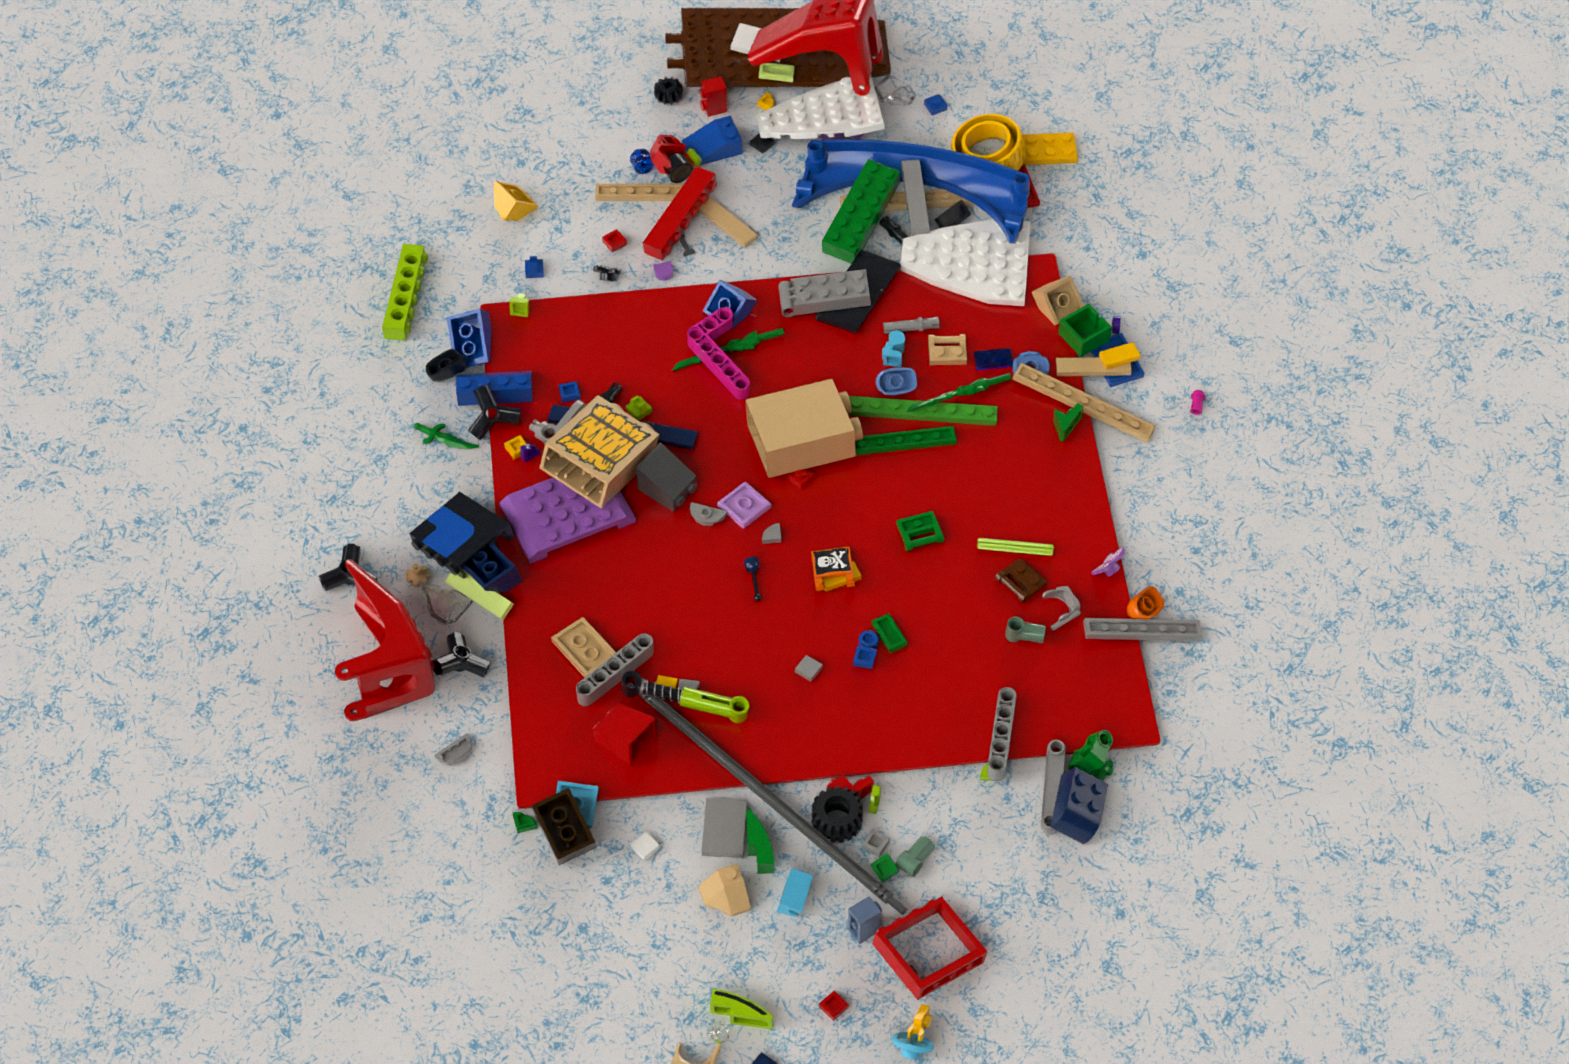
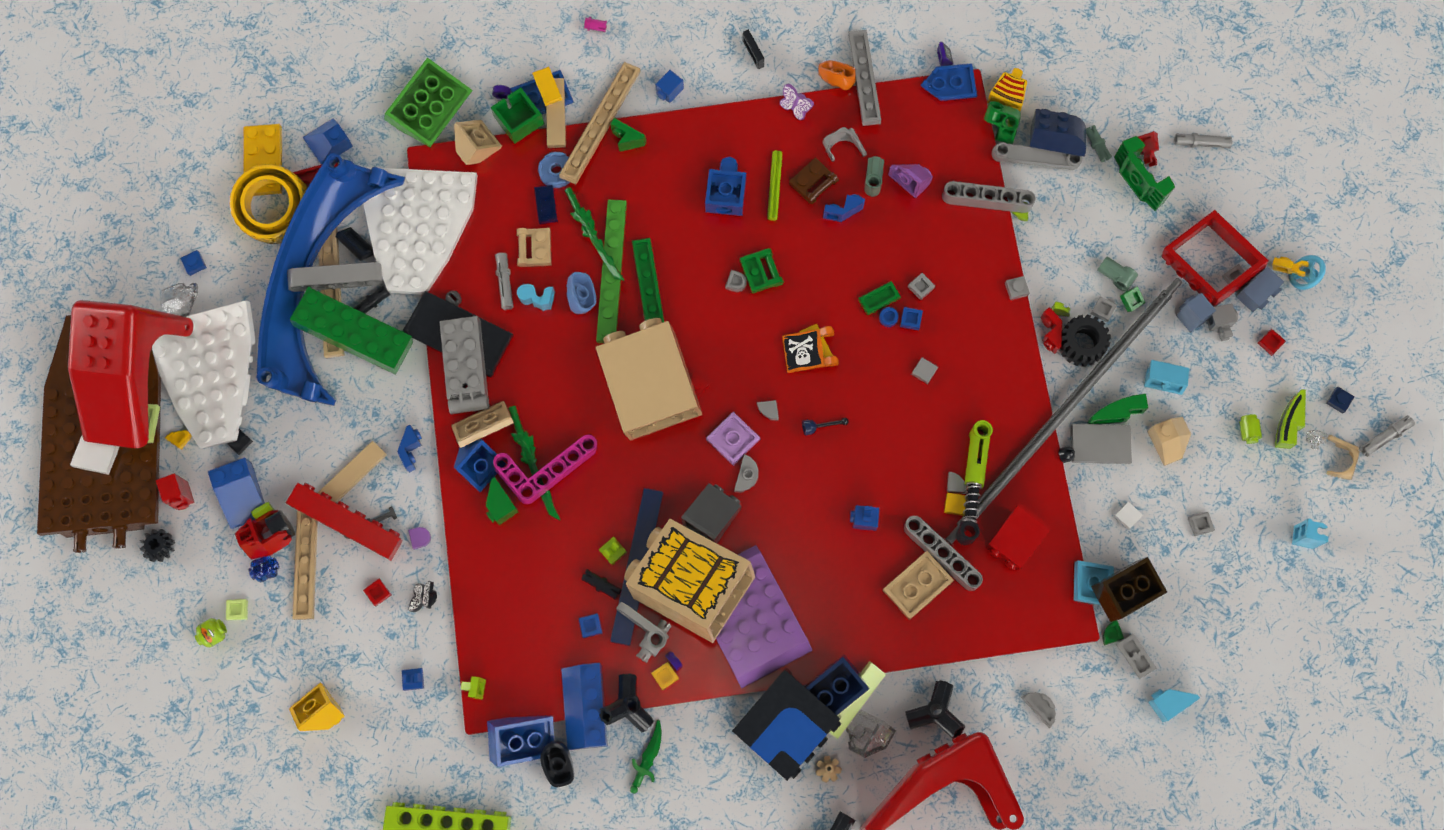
camera: 90 degrees left, 20 degrees up
(446, 863) = (1171, 702): none -> medium azure slope
(497, 836) = (1136, 656): none -> light grey hinge
(587, 128) = (210, 632): none -> lime head
(607, 147) = (237, 609): none -> yellowish green tile
(609, 1001) = (1306, 534): none -> medium azure hinge
(631, 914) = (1201, 524): none -> light grey tile
(655, 606) = (865, 517): none -> blue brick
(685, 318) = (499, 504): none -> green slope
(709, 790) = (1066, 454): none -> black hinge
(732, 968) = (1250, 429): none -> lime brick
(754, 259) = (408, 443): none -> blue slope
(765, 305) = (482, 424): none -> tan tile
(859, 951) = (1222, 320): none -> light grey brick
(894, 996) = (1260, 289): none -> sand blue brick
(897, 290) = (456, 295): none -> dark grey hinge
(898, 757) = (1017, 288): none -> light grey plate
(900, 668) = (921, 286): none -> light grey plate
(908, 509) = (736, 281): none -> light grey tile
(988, 606) = (853, 204): none -> blue slope
(1008, 490) = (726, 189): none -> blue brick
(1021, 663) = (911, 177): none -> medium lavender slope
(1033, 874) = (1138, 177): none -> green plate
(1061, 196) = (327, 140): none -> blue slope
(1066, 899) = (1151, 145): none -> red plate
(1072, 852) = (1098, 143): none -> sand green pin
(1078, 949) = (1202, 140): none -> light grey pin
(1101, 264) = (427, 103): none -> bright green slope
(1127, 461) = (669, 86): none -> blue brick
(1132, 768) = (1009, 89): none -> yellow torso
(1140, 712) = (951, 82): none -> blue tile
(1174, 534) = (753, 49): none -> black tile
(1176, 710) = (944, 55): none -> dark purple slope

